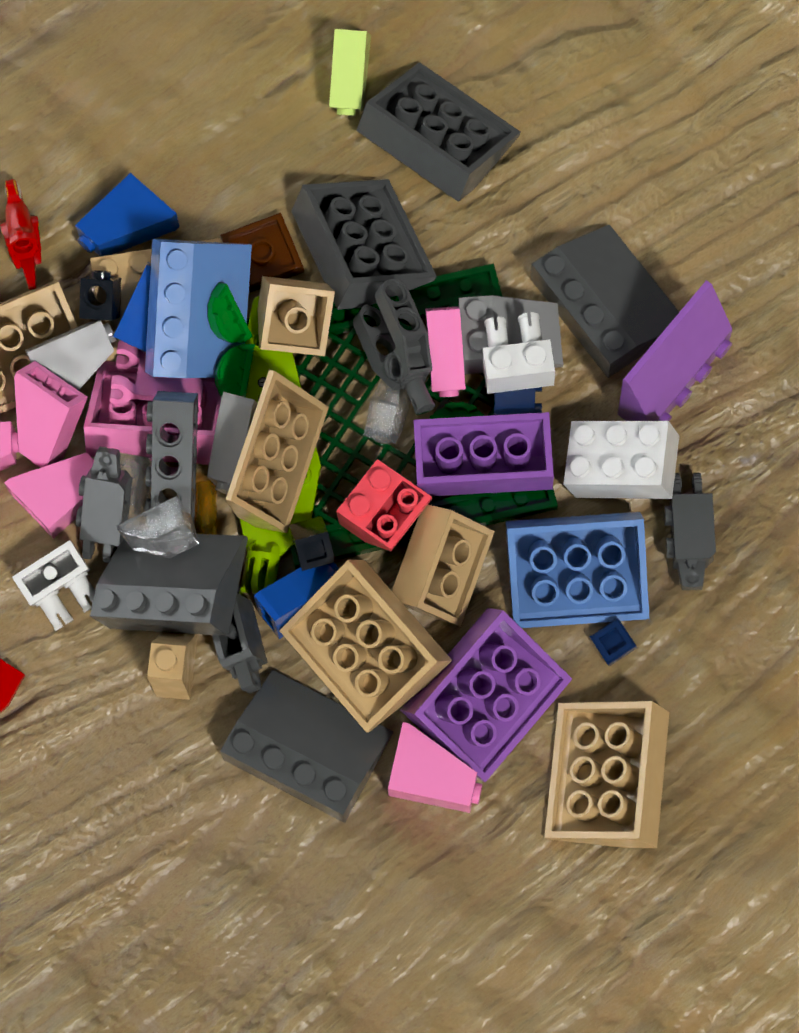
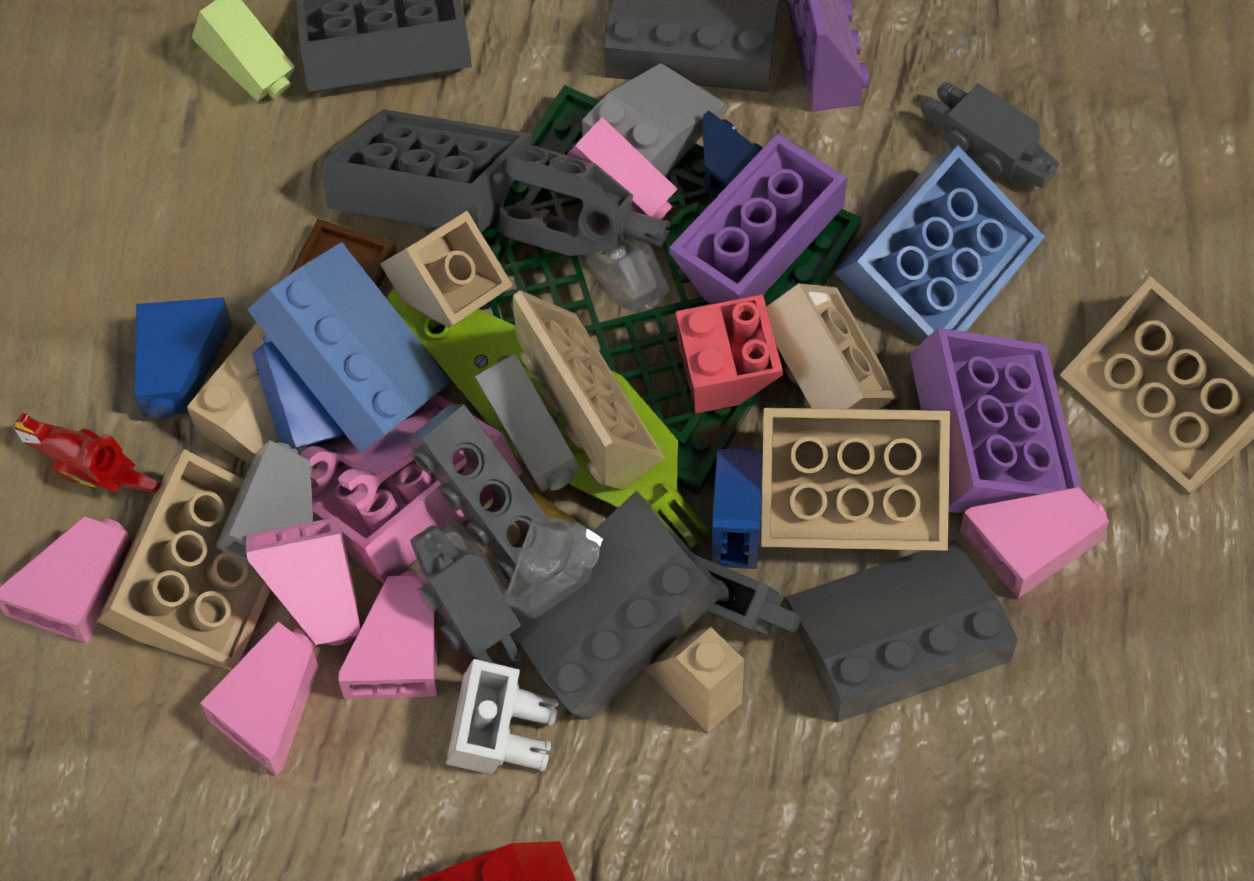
camera: 50 degrees left, 10 degrees down
(93, 309) = (262, 426): black brick -> none
(226, 317) = (389, 322): green tile -> none
(234, 370) = (449, 374): green tile -> none
(312, 543) = (702, 440): black brick -> none
(520, 364) = (705, 120): white brick -> none
(613, 642) = (1041, 281): dark blue tile -> none
(621, 459) = (875, 124): white brick -> none

